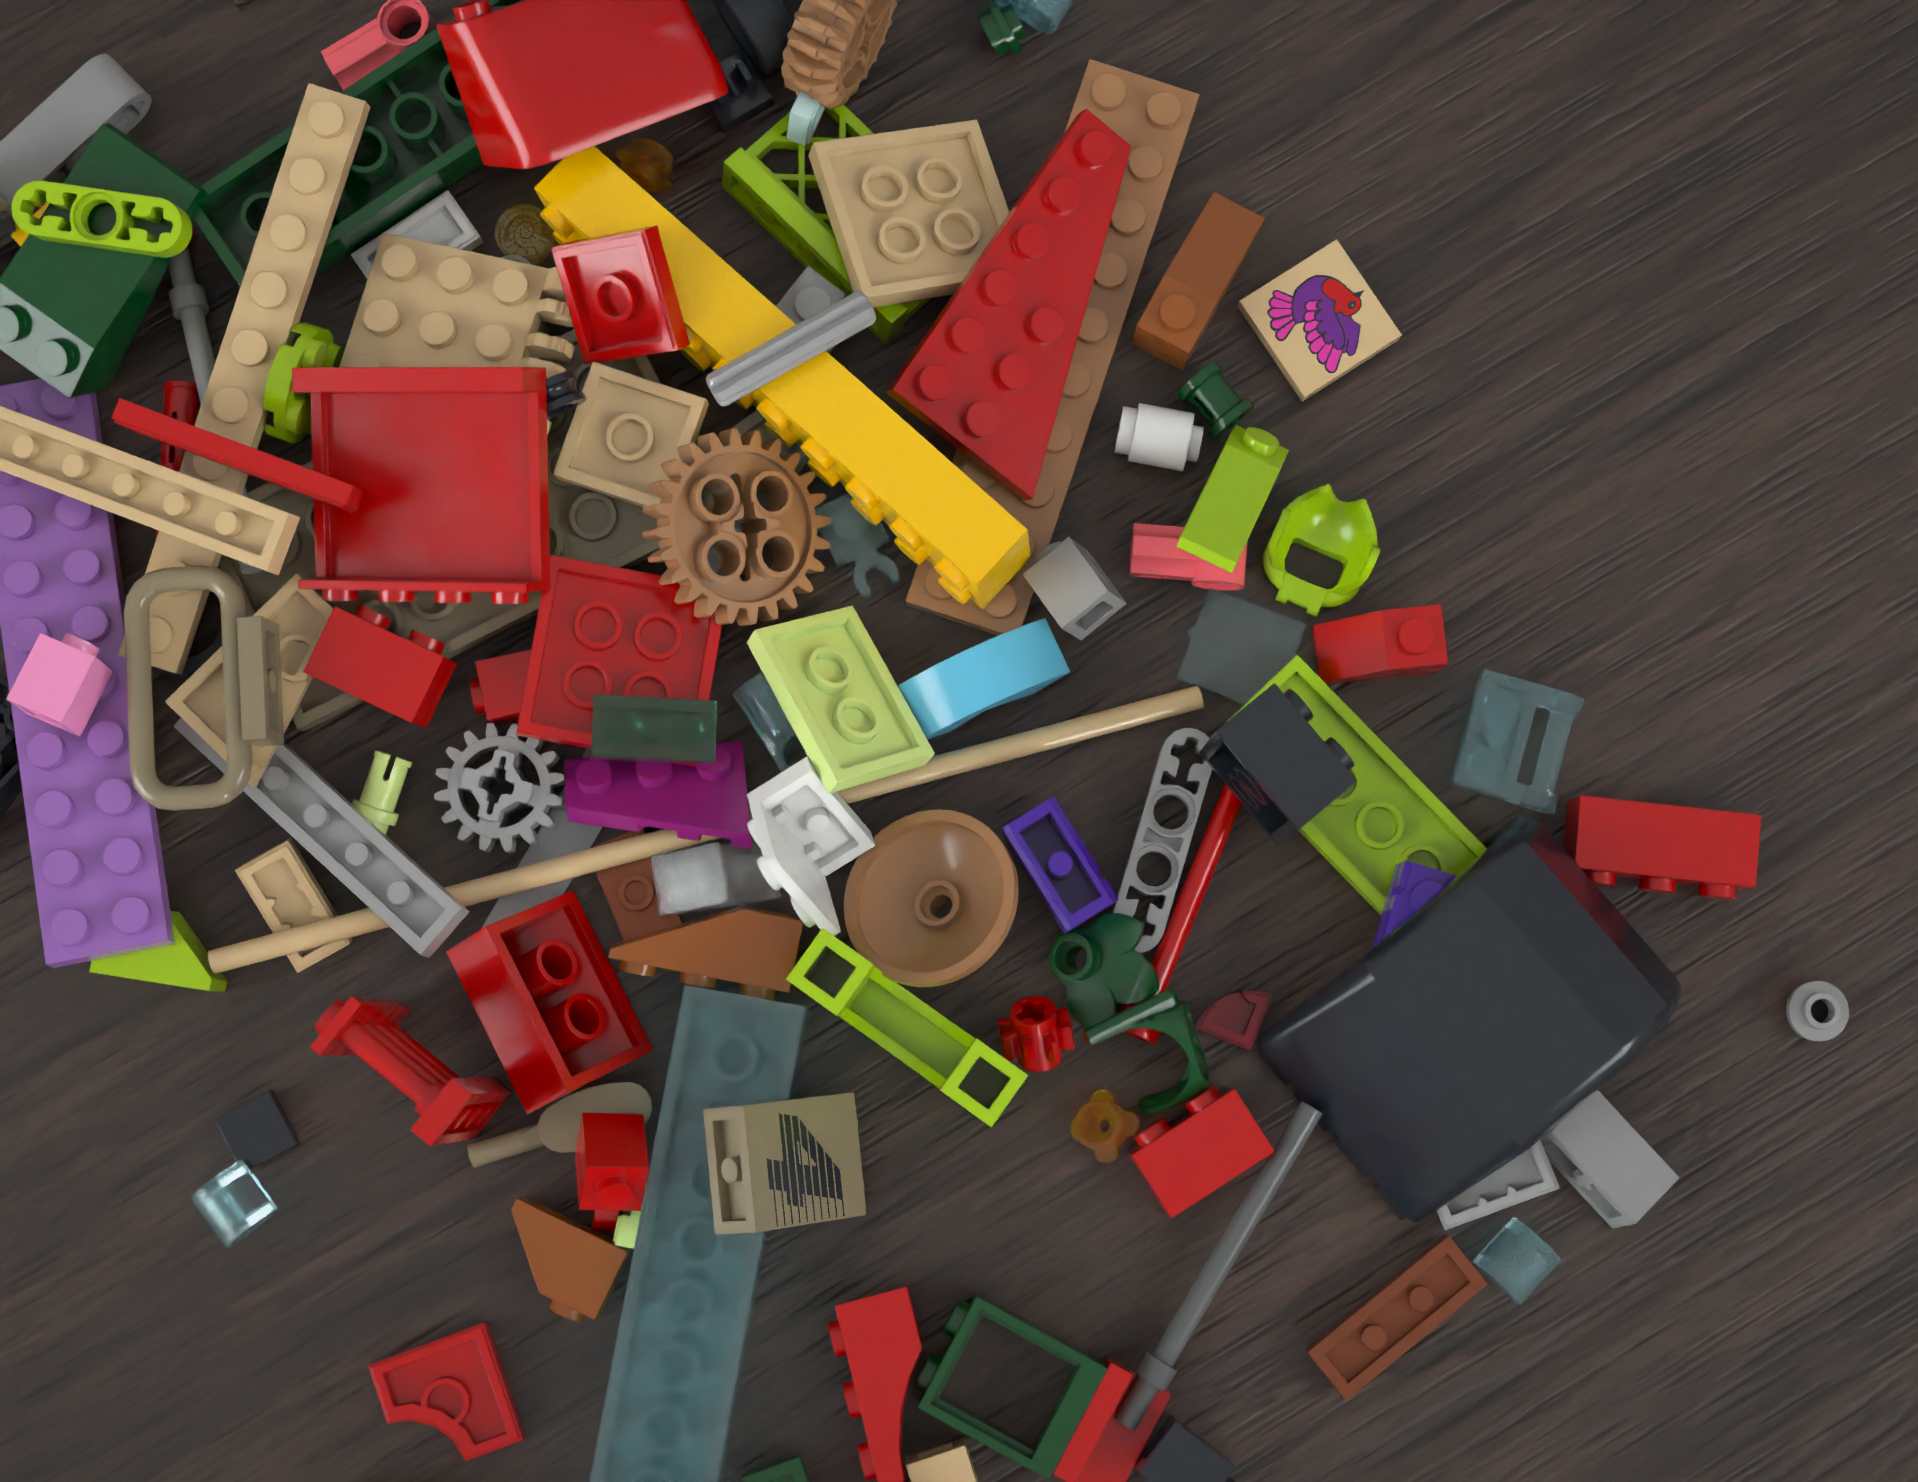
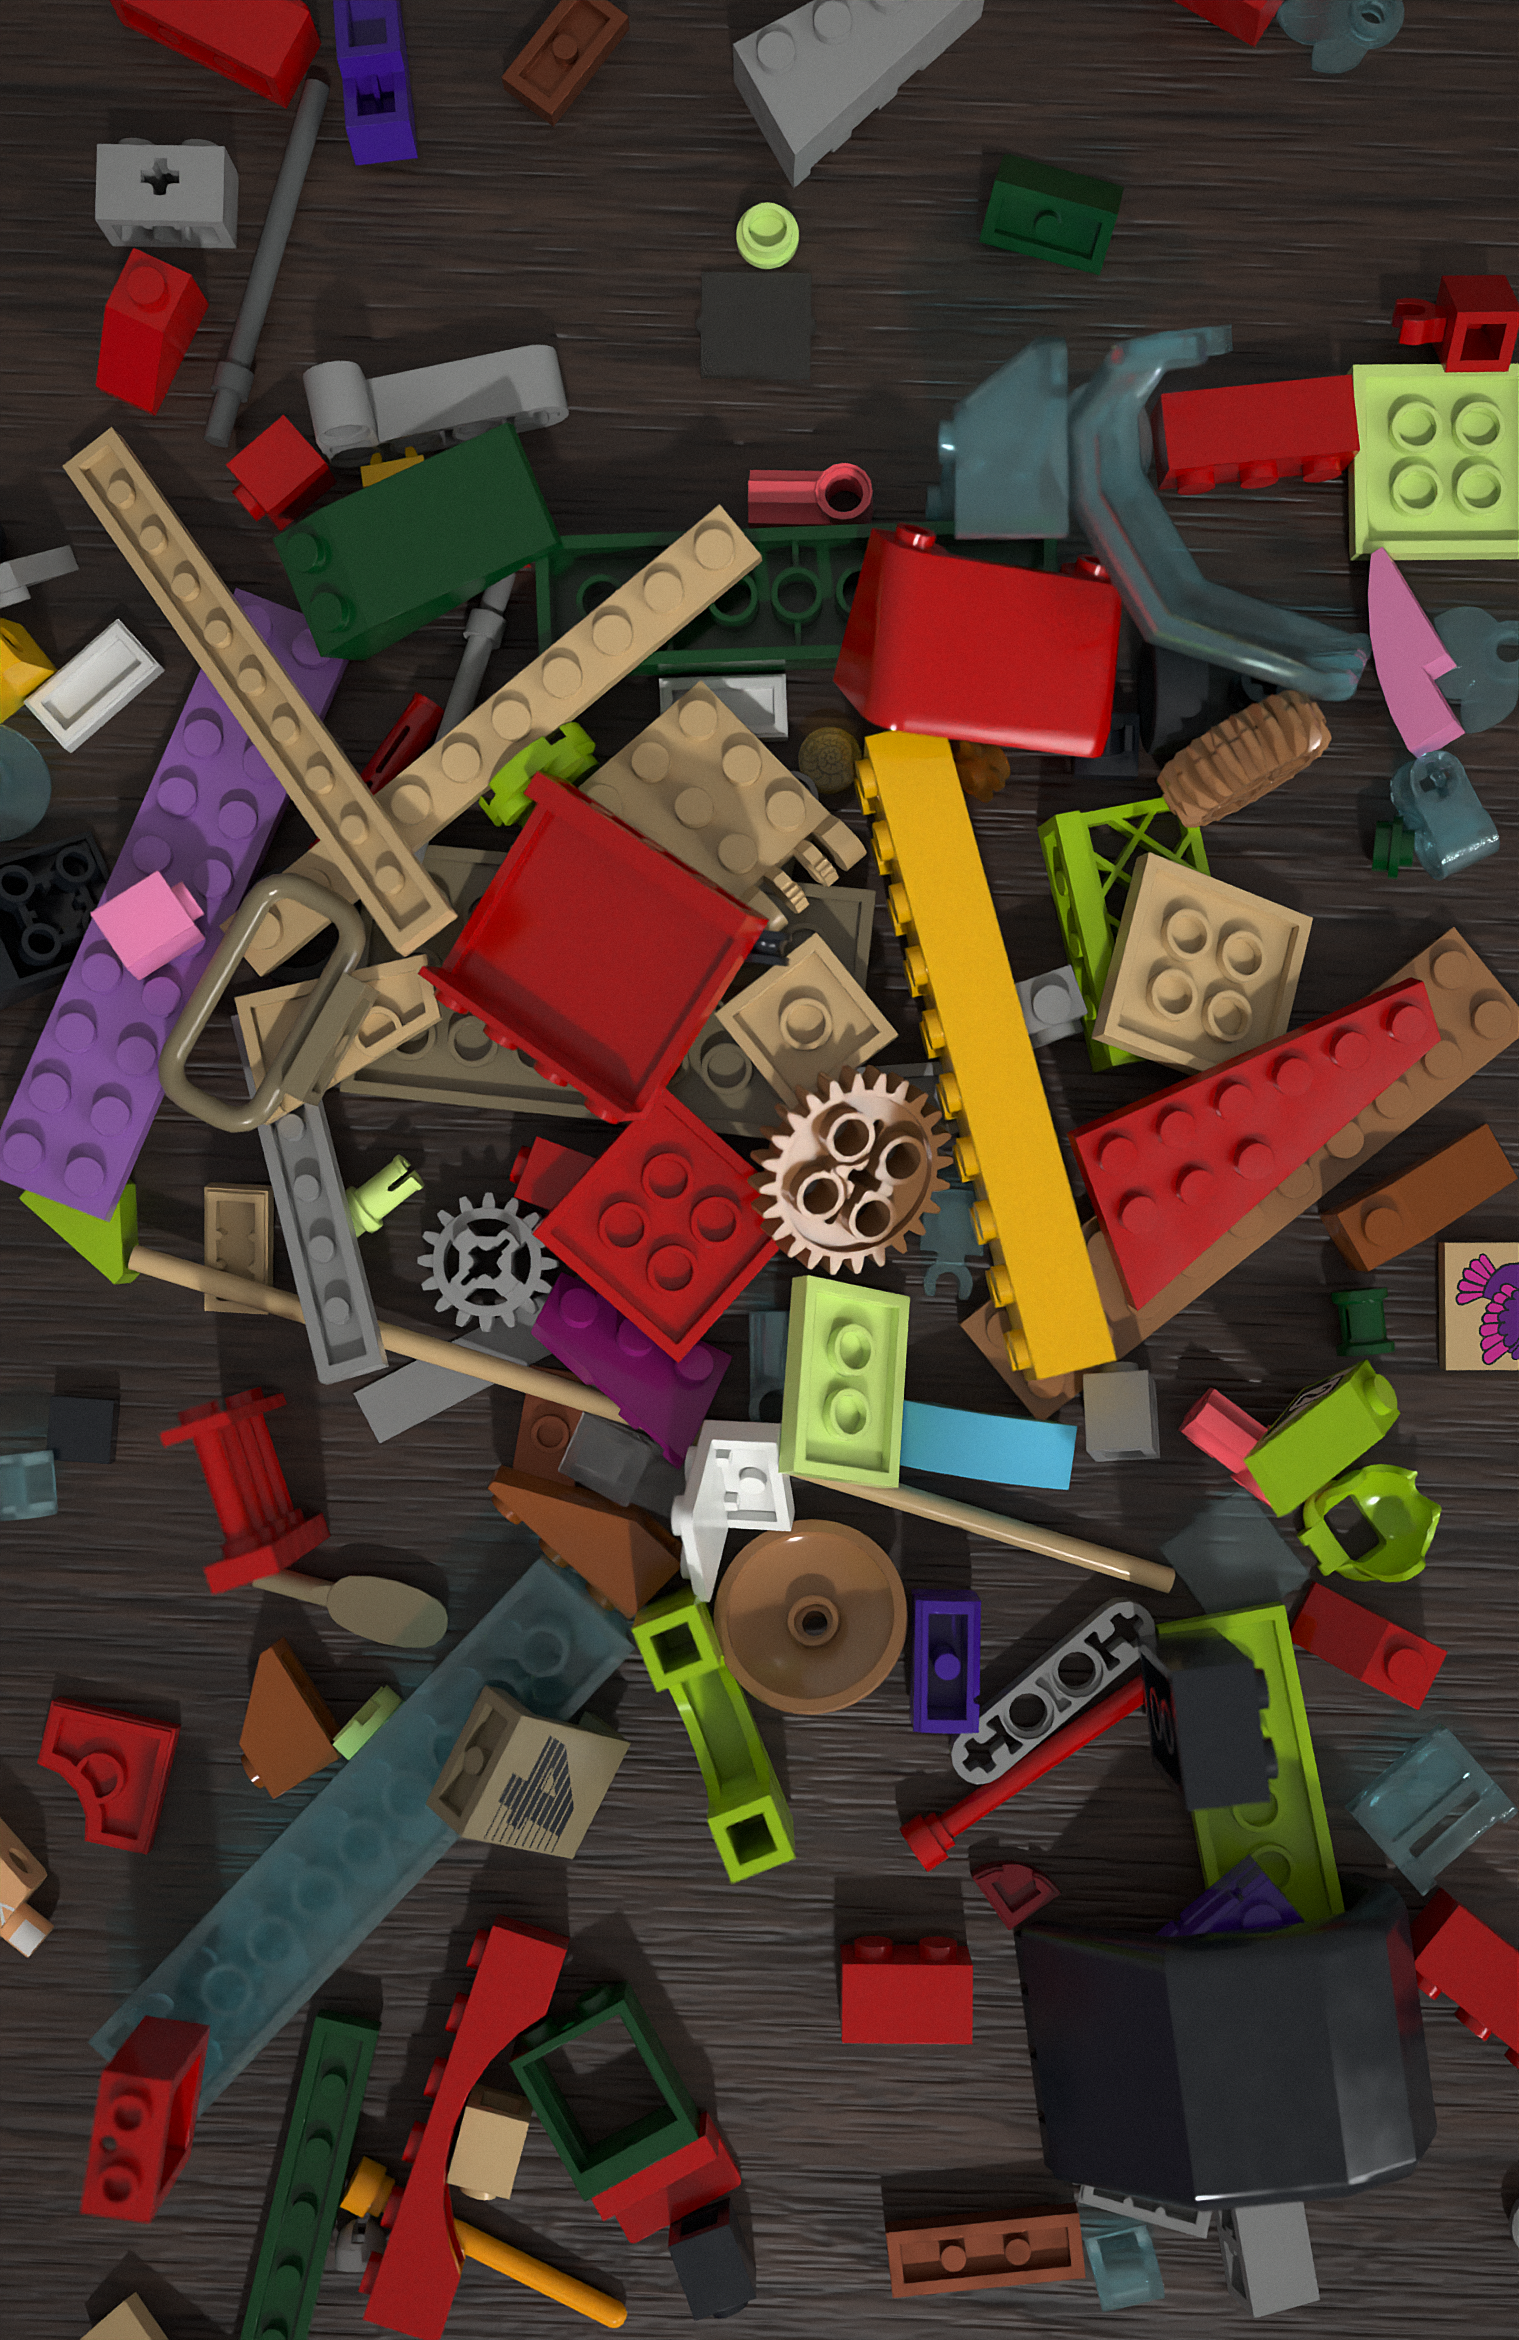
camera: 35 degrees right, 5 degrees up
(86, 198) = (404, 497): lime beam -> none
(237, 456) = (436, 819): red tile -> none
(381, 667) = (449, 1088): red brick -> none
(549, 1000) = (411, 1485): red slope -> none
(611, 1166) = (373, 1671): red brick -> none
(620, 295) = (881, 891): red tile -> none
(653, 729) = (657, 1312): clear green plate -> none
(791, 348) = (1007, 1048): light grey axle -> none
(804, 119) = (1153, 820): light aqua tile -> none
(1036, 1033) = (826, 1794): red gear -> none
(1087, 1124) = (817, 1905): clear orange plate -> none
(1112, 968) = (928, 1784): dark green plate -> none
(1157, 1367) = (743, 2156): dark grey bar -> none
(1158, 436) = (1288, 1322): white brick -> none
(1171, 1017) = (956, 1863): dark green helmet -> none

